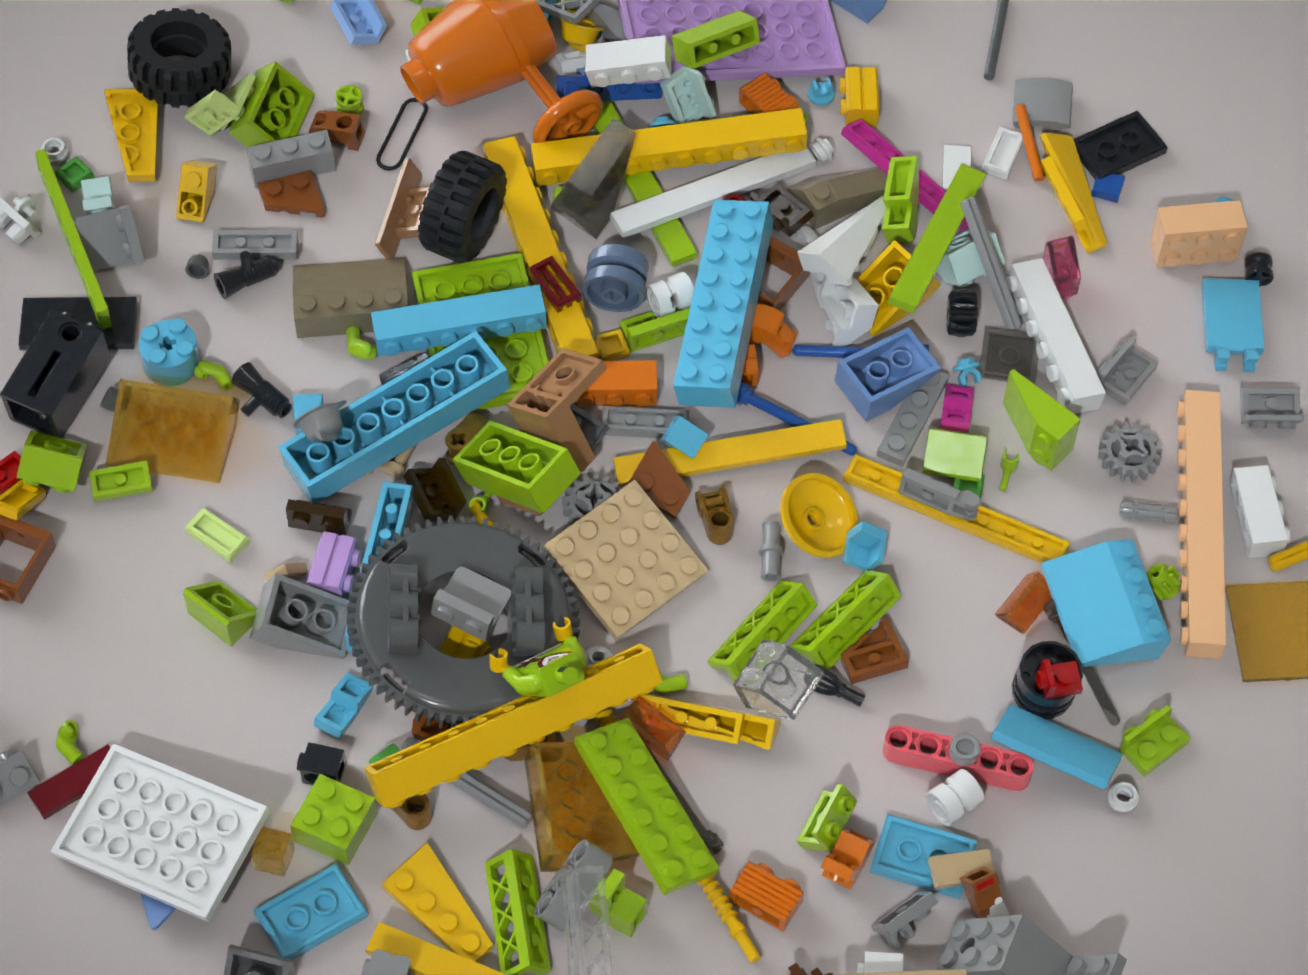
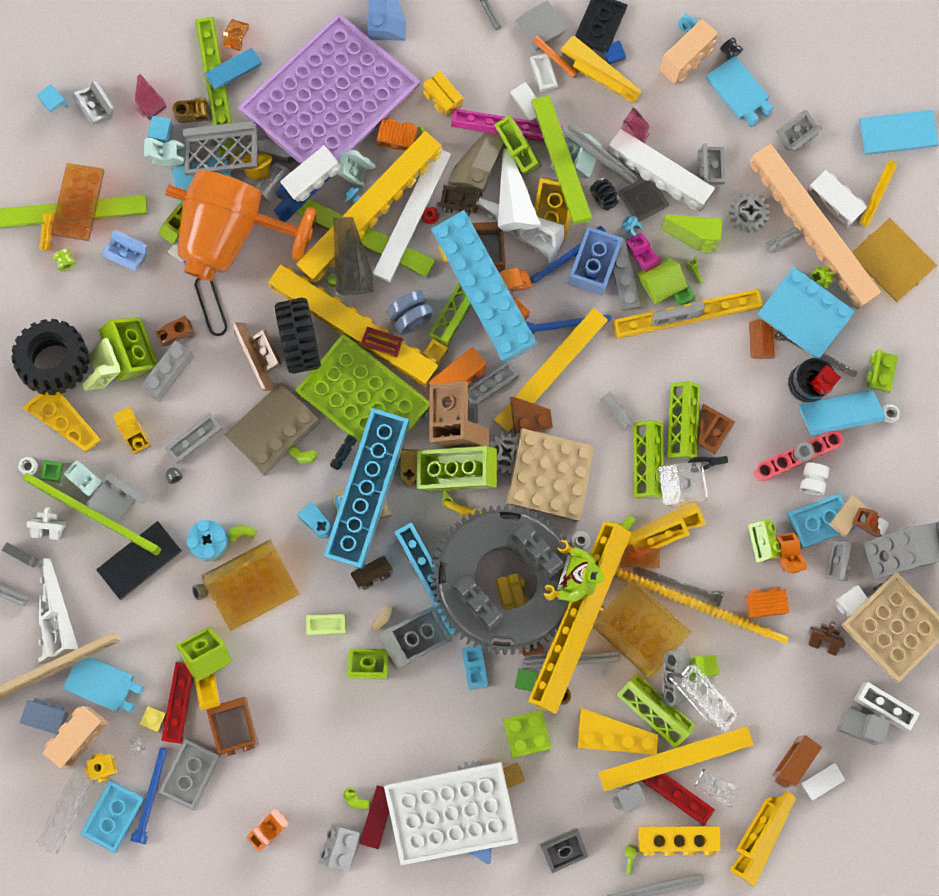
camera: 40 degrees left, 20 degrees up
(56, 374) = (163, 604): black brick -> none
(120, 481) = (249, 635): lime plate -> none
(247, 274) = (206, 460): black piece -> none
(262, 392) = (278, 524): black piece -> none
(292, 194) = (185, 390): dark orange wing -> none
(310, 913) = (555, 790): medium azure tile -> none
(321, 422) = (340, 526): light grey piece -> none
(321, 760) = (494, 710): black brick -> none
(334, 564) = (404, 596): lavender brick -> none
(346, 95) = (164, 305): lime wheel -> none
(436, 491) = (420, 511): dark brown bracket -> none
(453, 319) = (349, 403): medium azure brick -> none
(471, 603) = (509, 571): light grey bracket -> none
(646, 806) = (675, 605): lime plate -> none
(669, 295) = (445, 302): white wheel -> none
(684, 436) = (522, 380): medium azure panel -> none
(715, 39) = (346, 122): lime brick -> none
(715, 510) = (570, 409): pearl gold piece -> none
(821, 92) = (418, 106): medium azure plate -> none
(822, 149) = (449, 144): white plate -> none
(827, 509) = (628, 373): yellow dish -> none
(865, 546) = (663, 372): medium azure panel -> none

